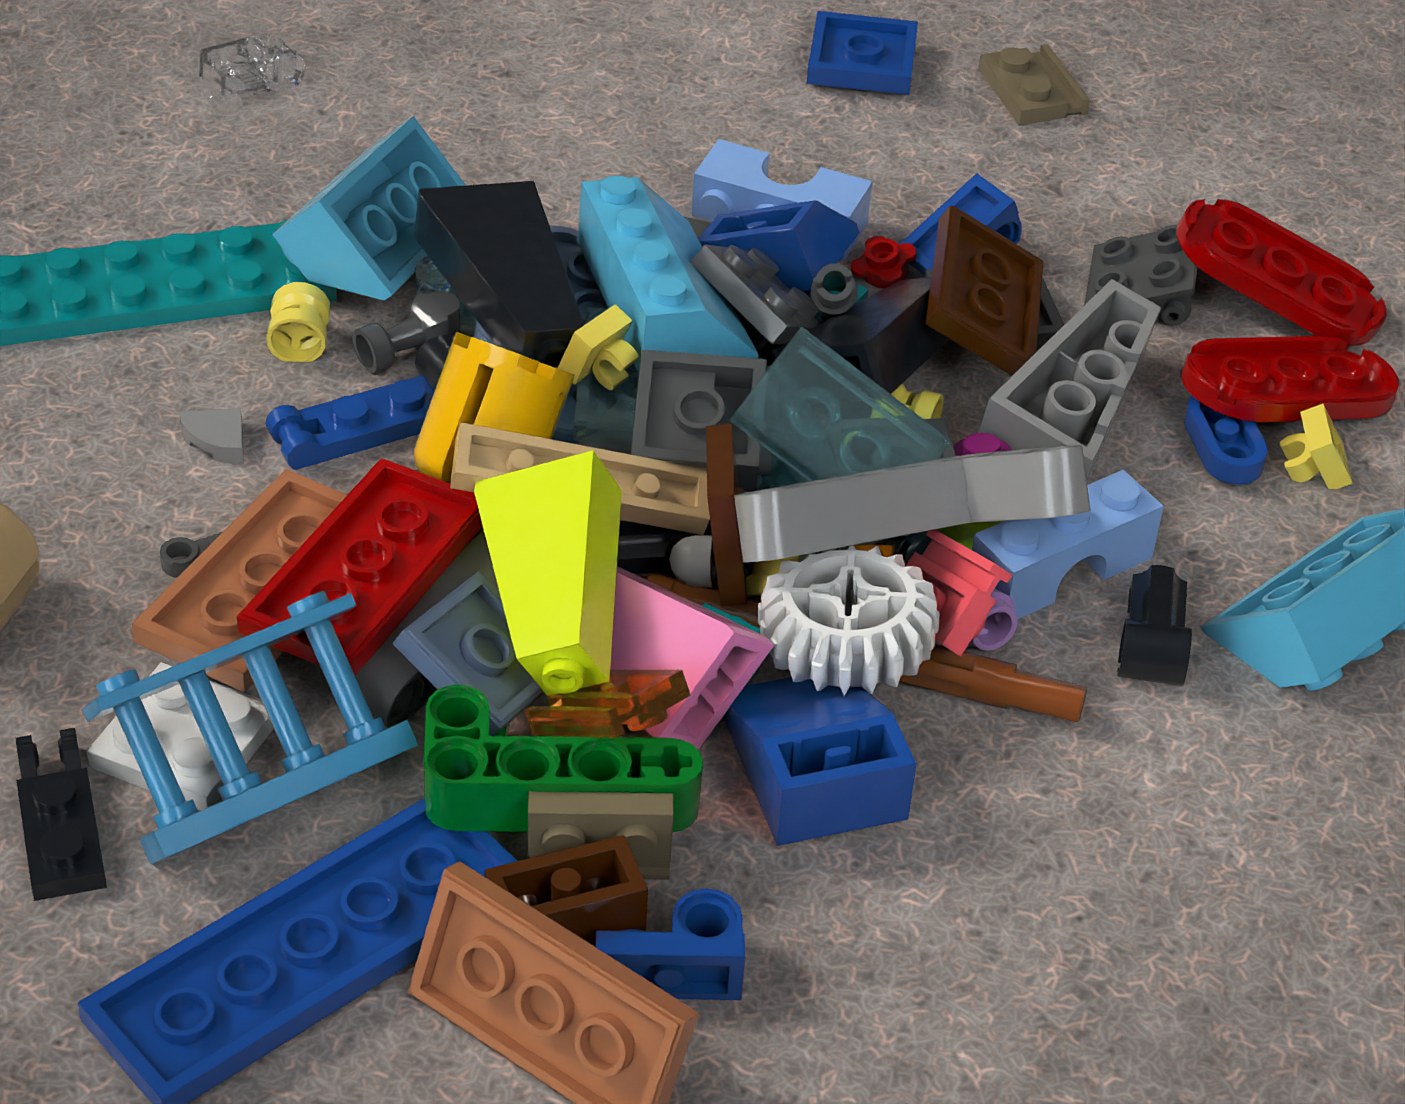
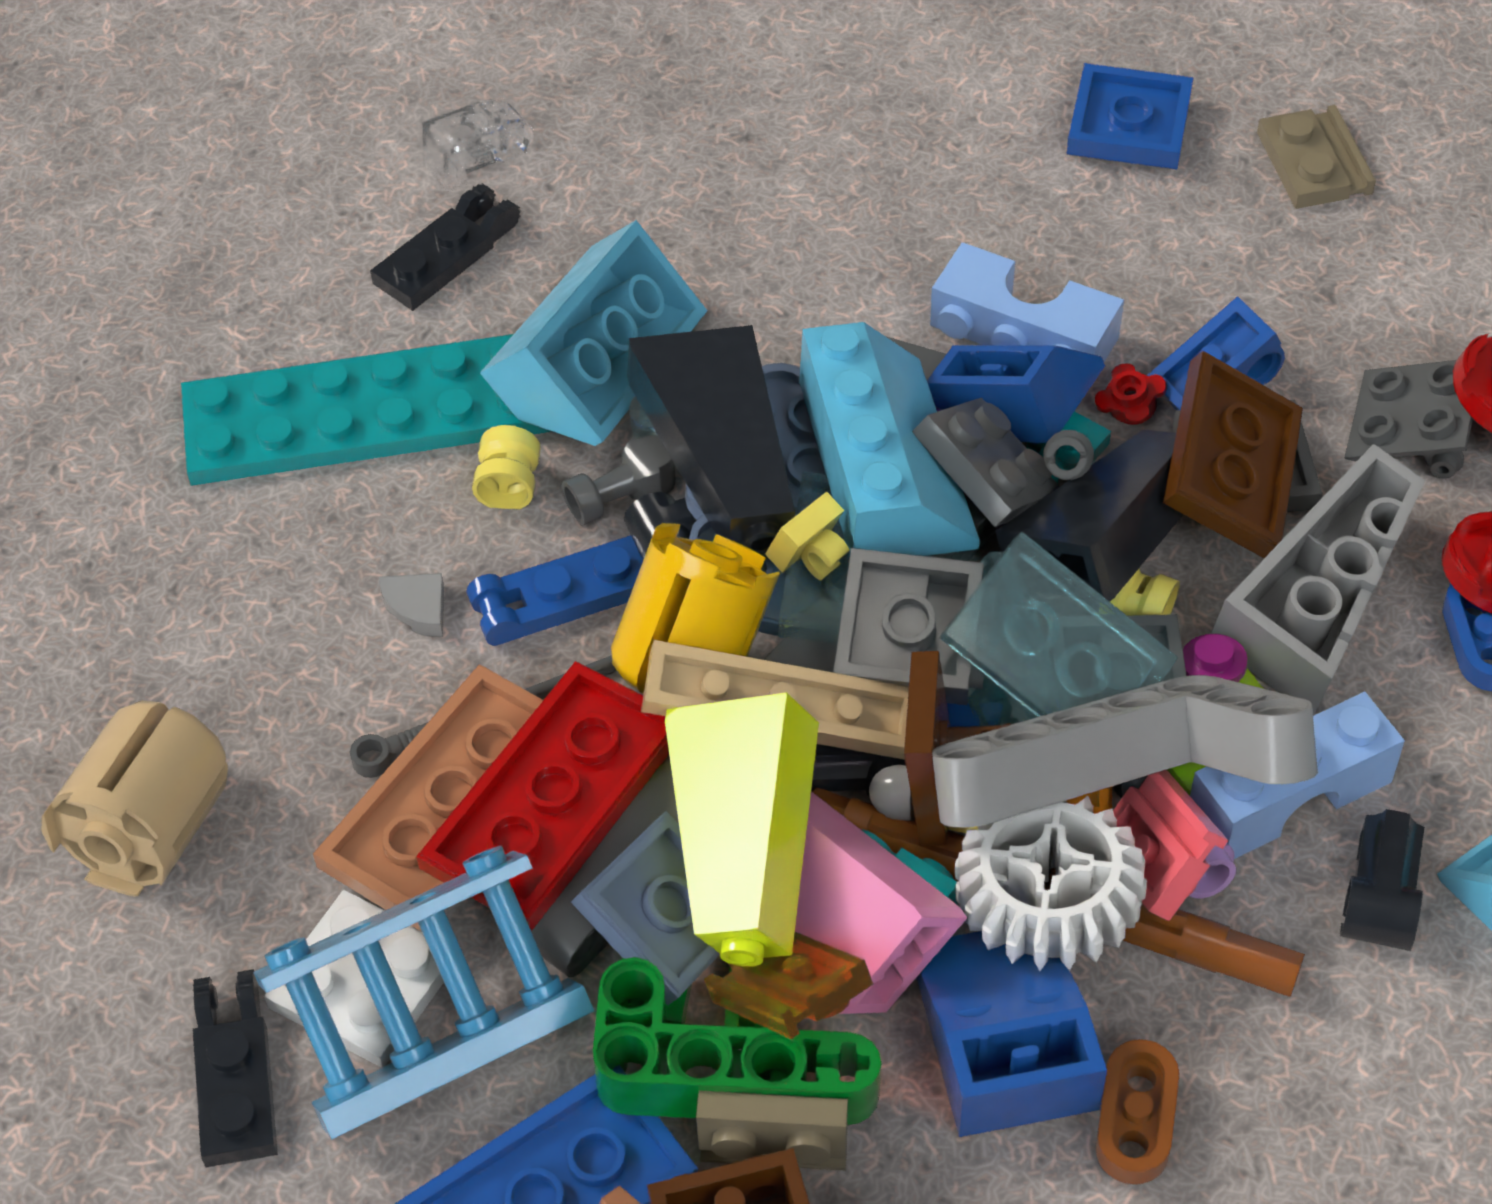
camera: 10 degrees right, 10 degrees up
(226, 156) = (445, 247): none -> black hinge
(944, 819) = (1136, 1114): none -> dark orange plate

